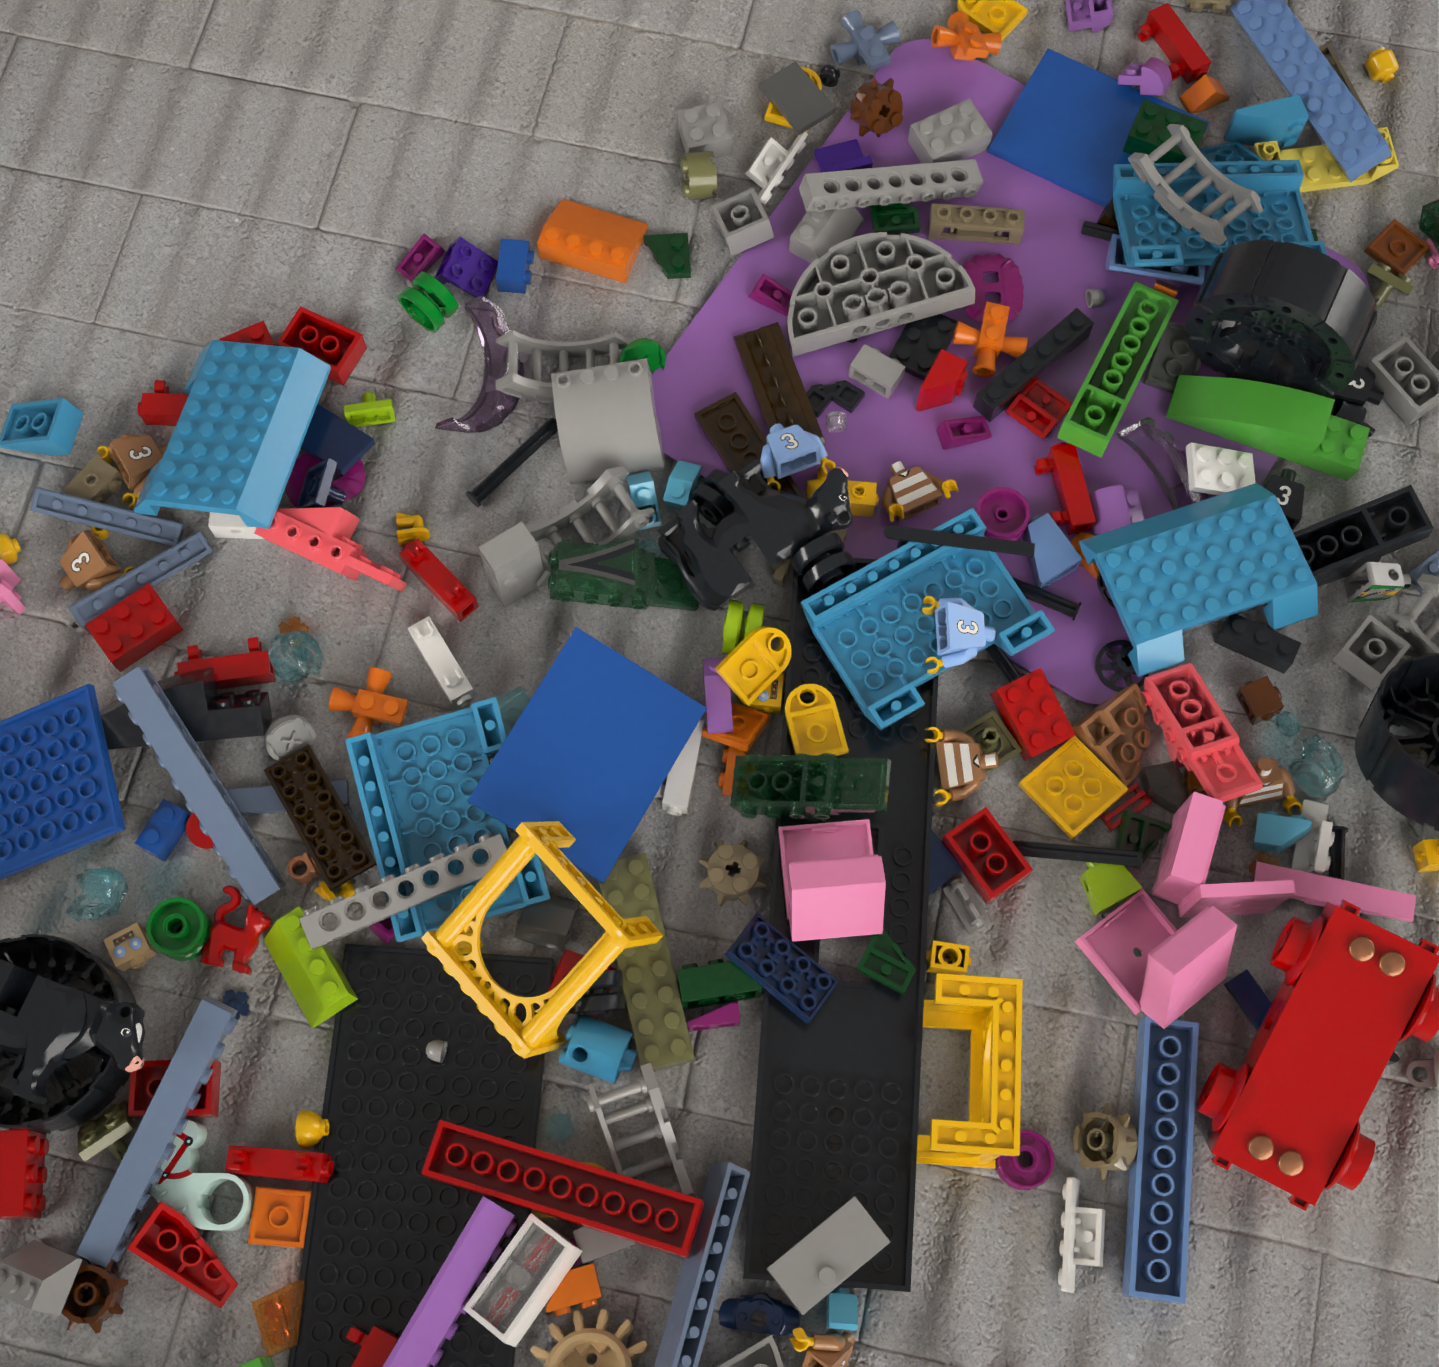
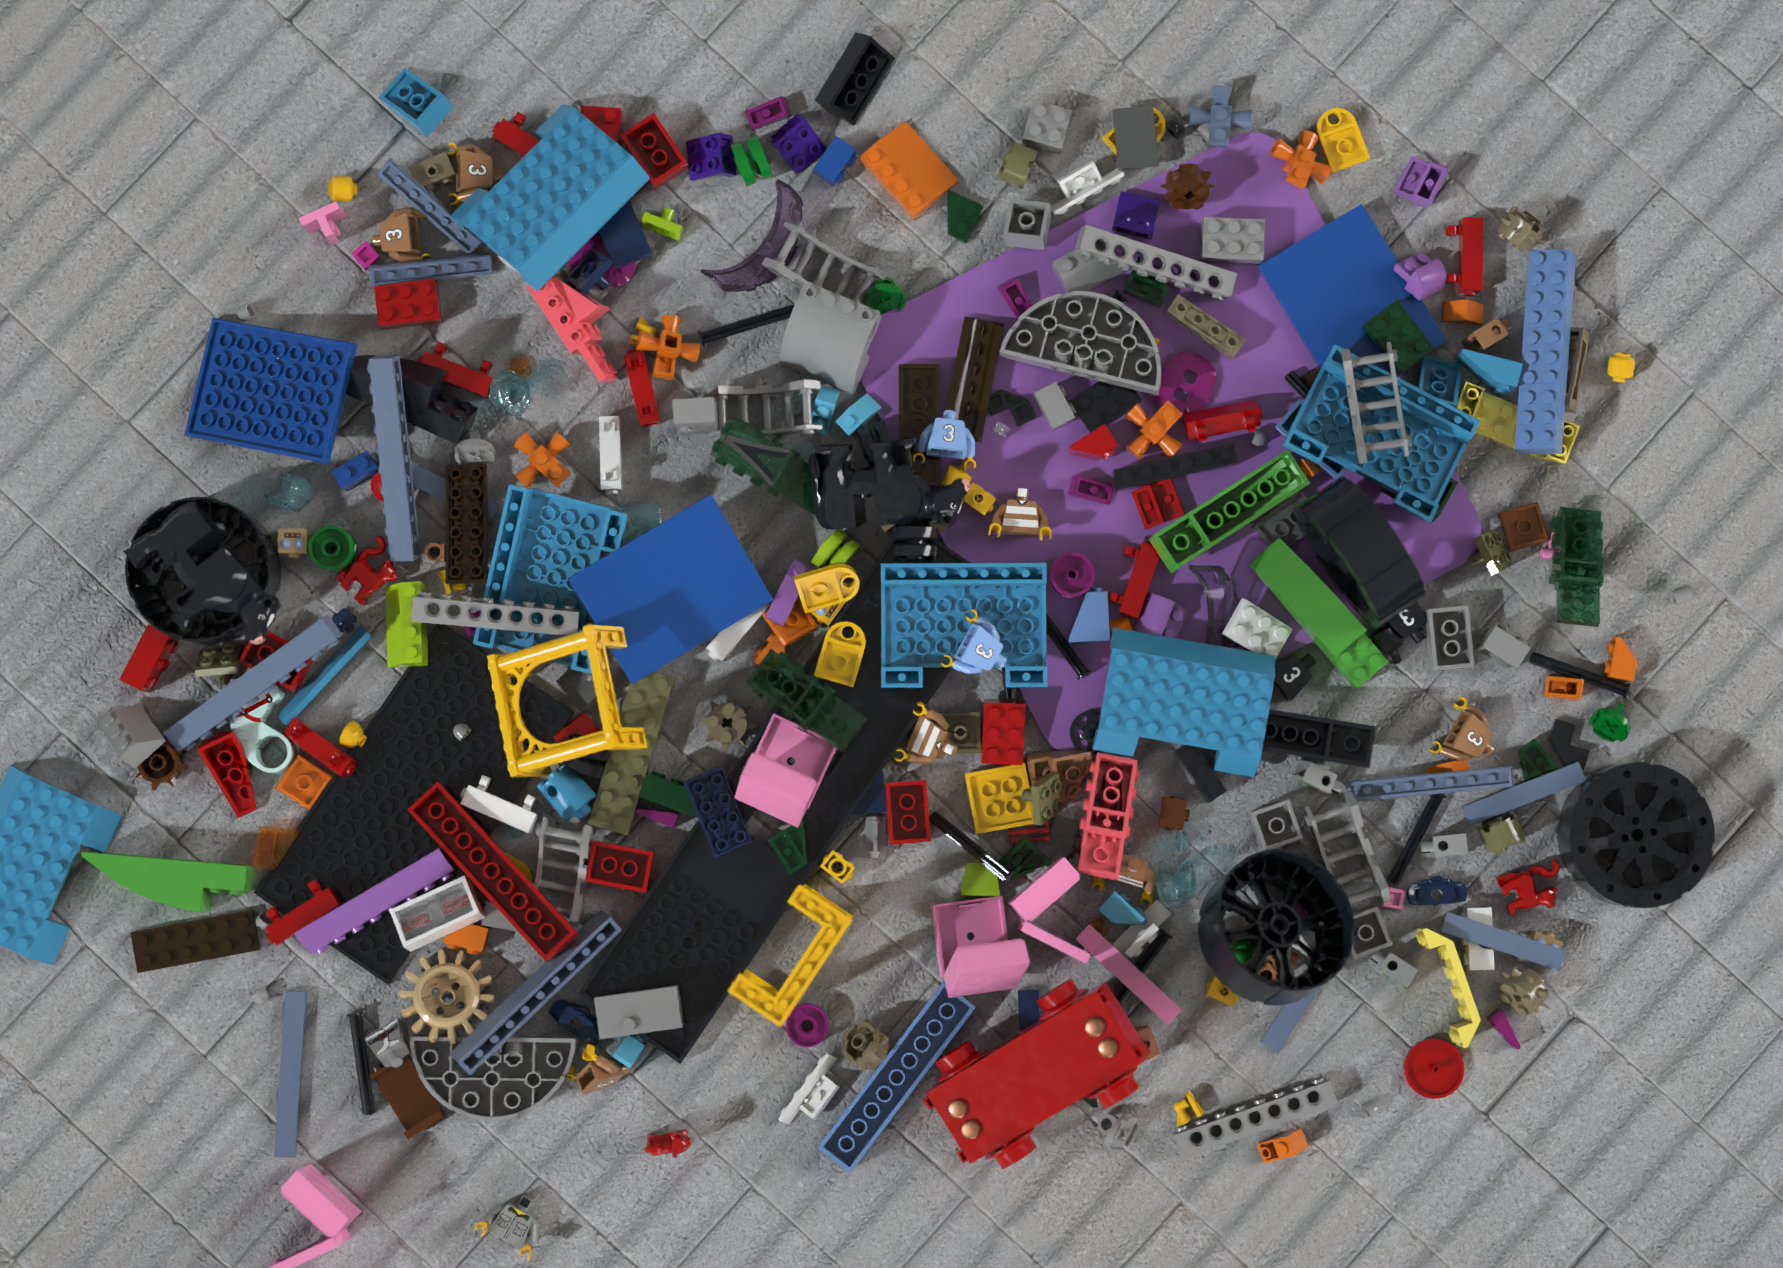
camera: 30 degrees right, 15 degrees up
(58, 604) = (365, 255): none -> dark pink plate
(241, 1079) = (324, 675): none -> dark azure tile
(383, 323) = (711, 156): none -> dark purple bracket
(442, 522) = (667, 347): none -> orange brick
(488, 183) = (854, 78): none -> black slope
(527, 1113) = (499, 808): none -> white brick
(706, 1099) = (620, 866): none -> red brick
(906, 534) = (1021, 582): black piece -> none
(1050, 296) = (1222, 420): none -> red brick
(1122, 753) = (1044, 798): none -> olive plate
(1245, 93) = (1487, 335): none -> medium nougat torso

